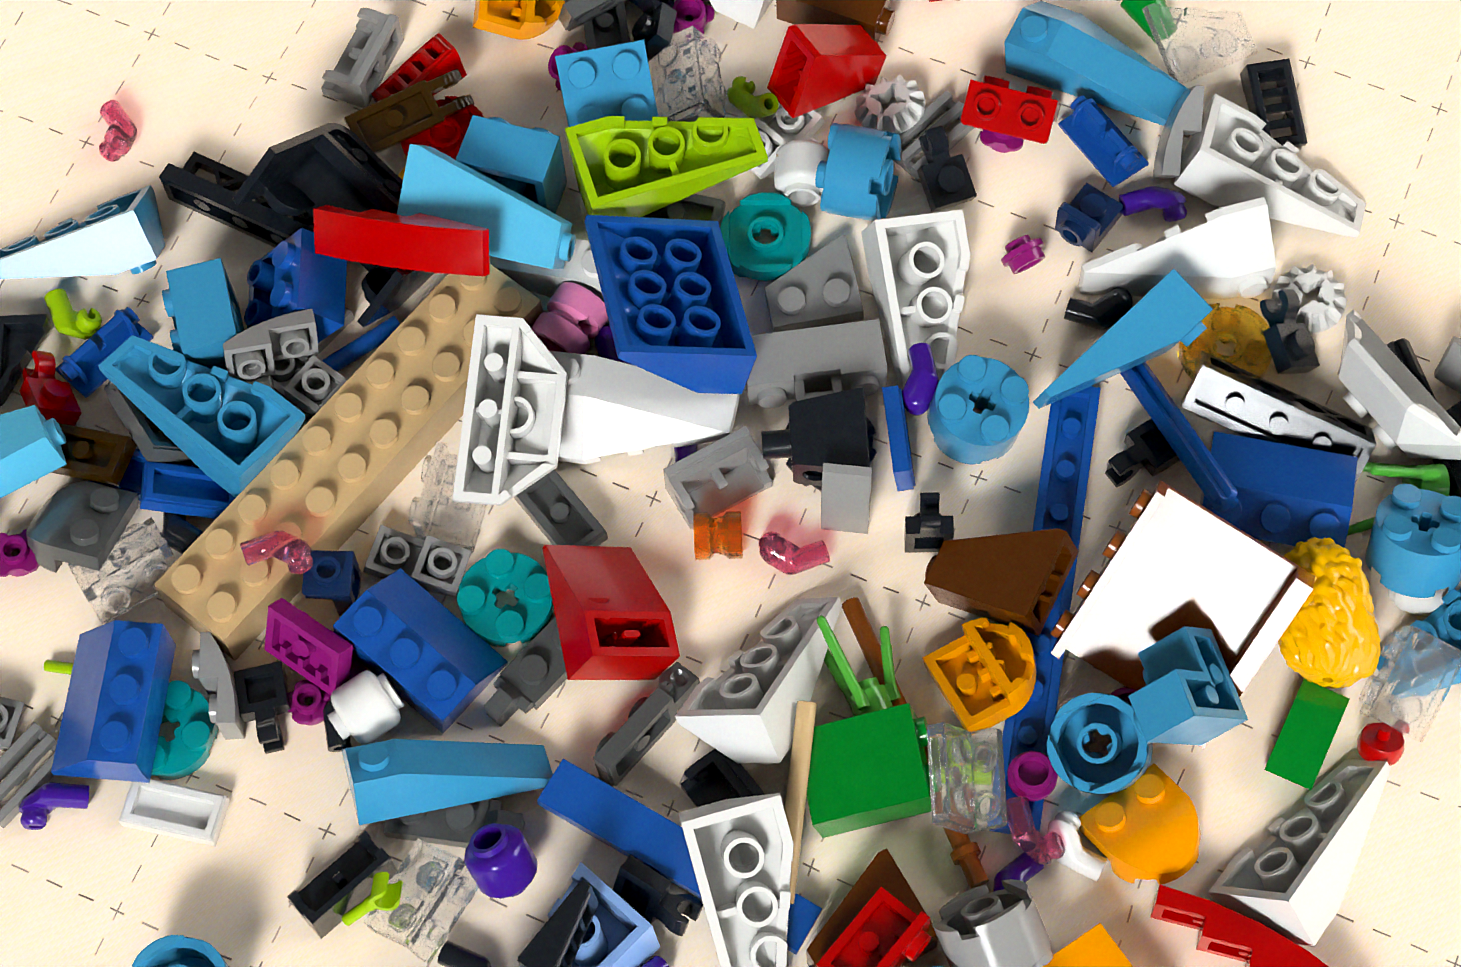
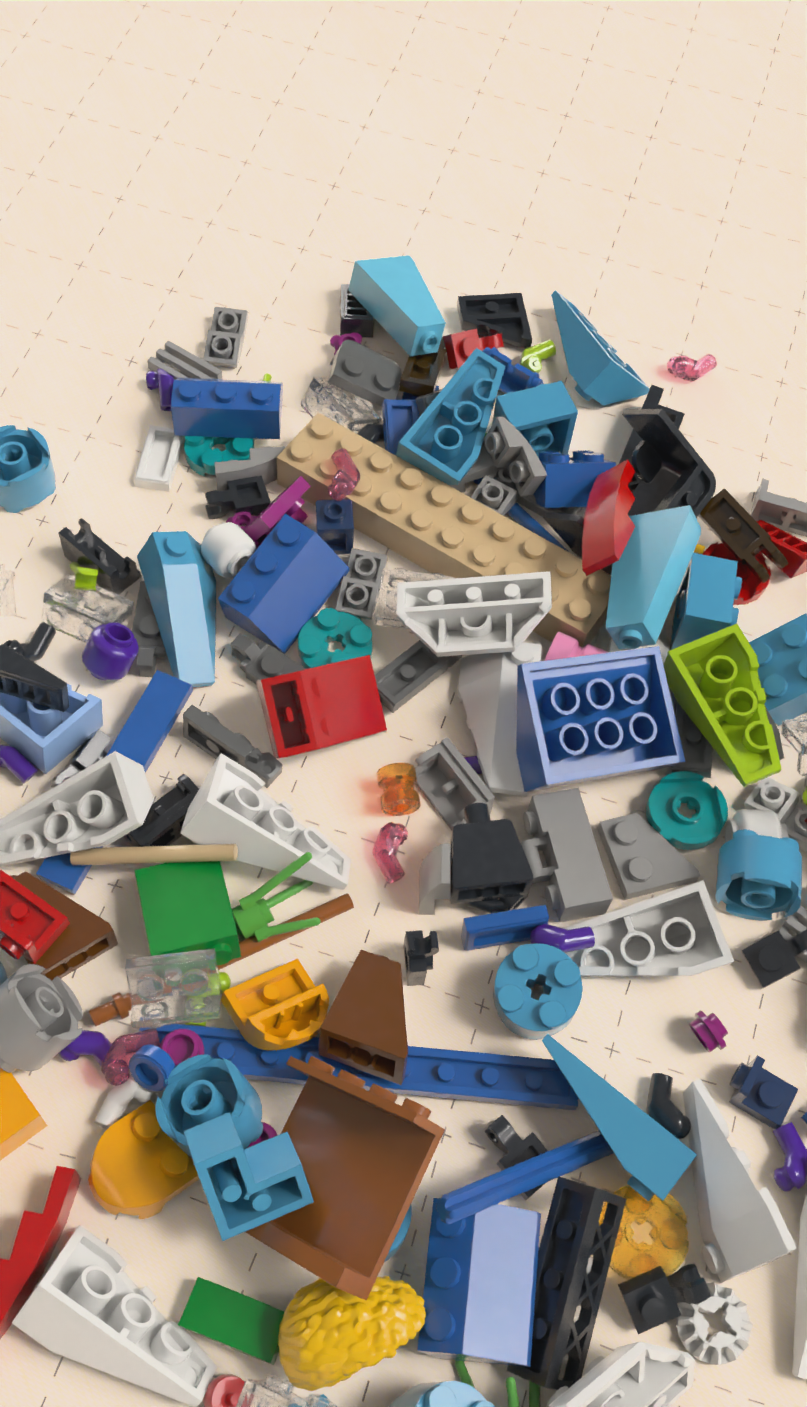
camera: 75 degrees right, 5 degrees down
(1053, 802) = (151, 1067): none -> blue tile

